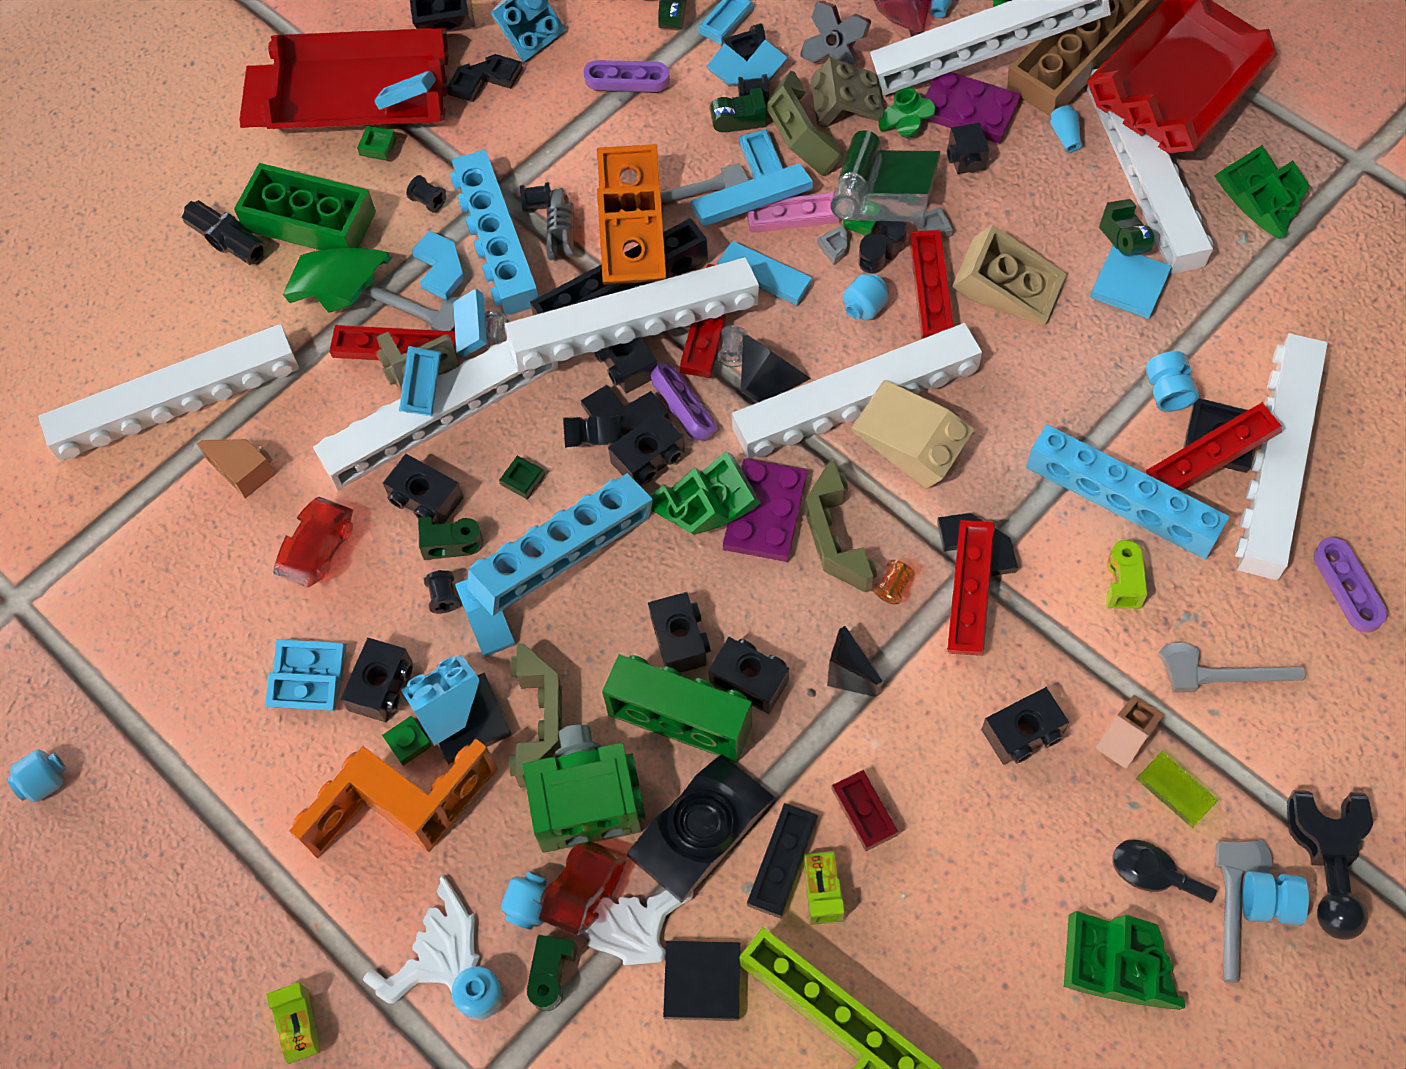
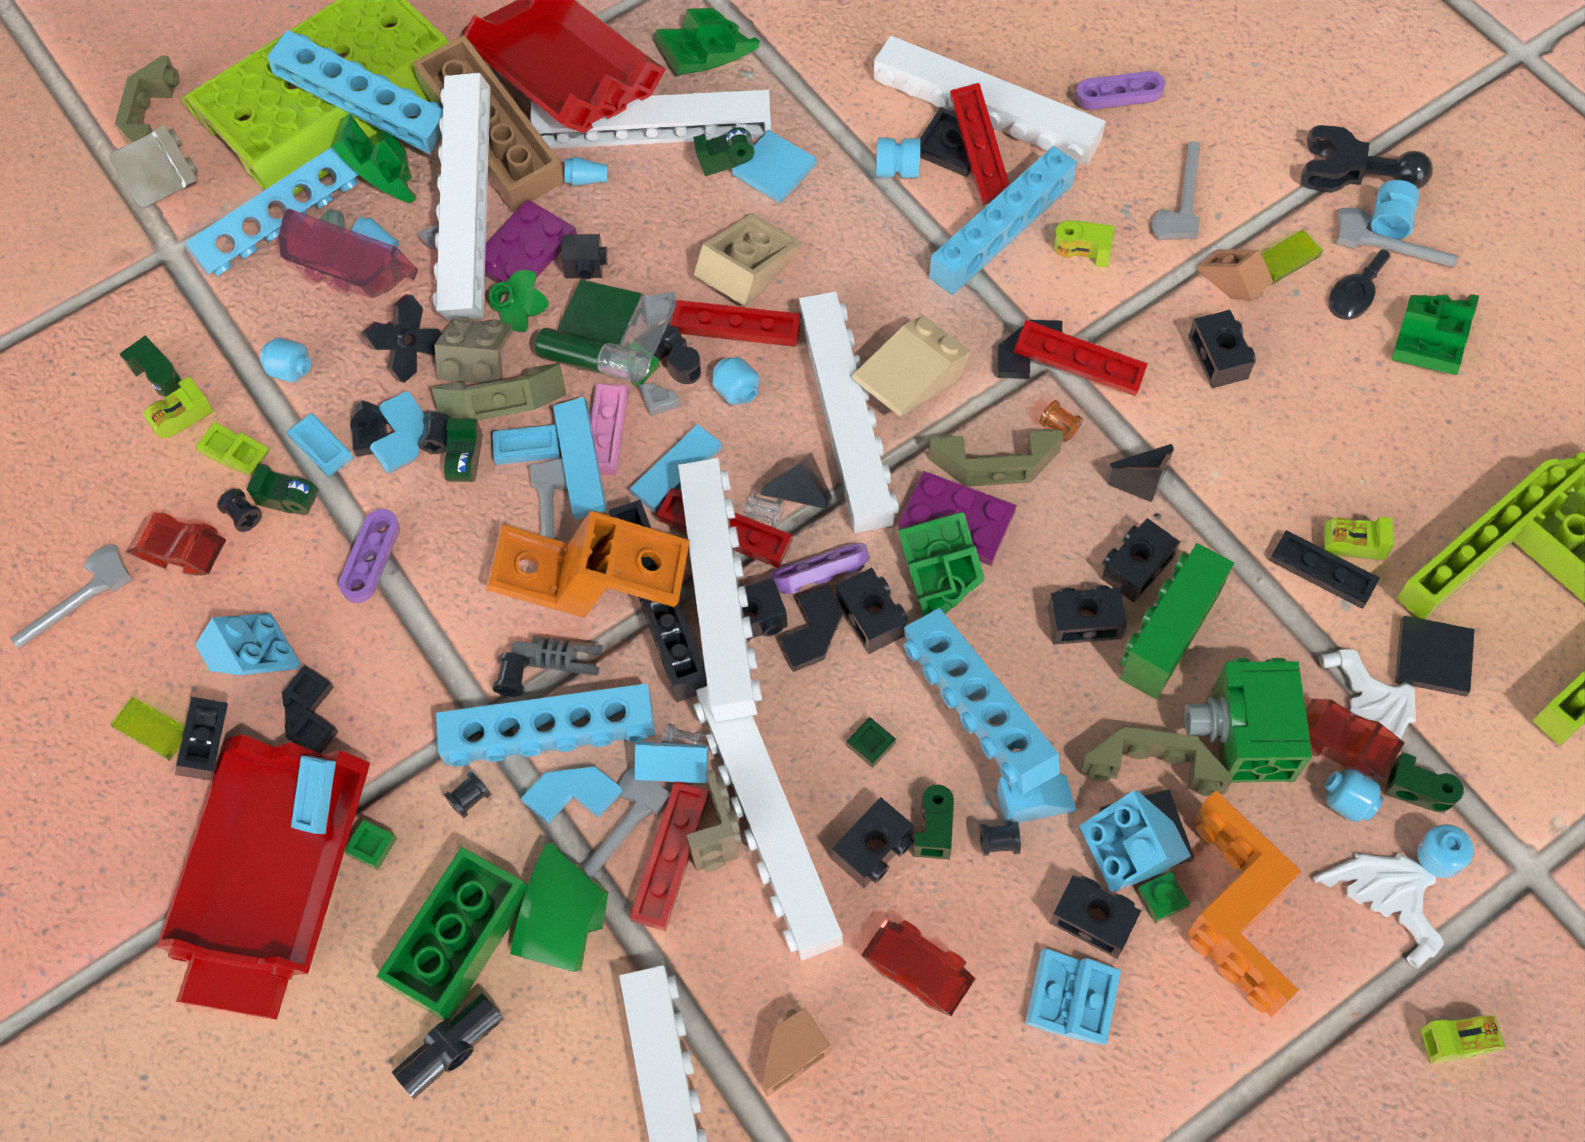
camera: 80 degrees left, 0 degrees up
(420, 381) = (756, 811): medium azure tile -> none
(592, 430) = (840, 649): black leg -> none
(700, 827) = (1292, 627): black slope -> none
(864, 810) = (1286, 490): dark red plate -> none

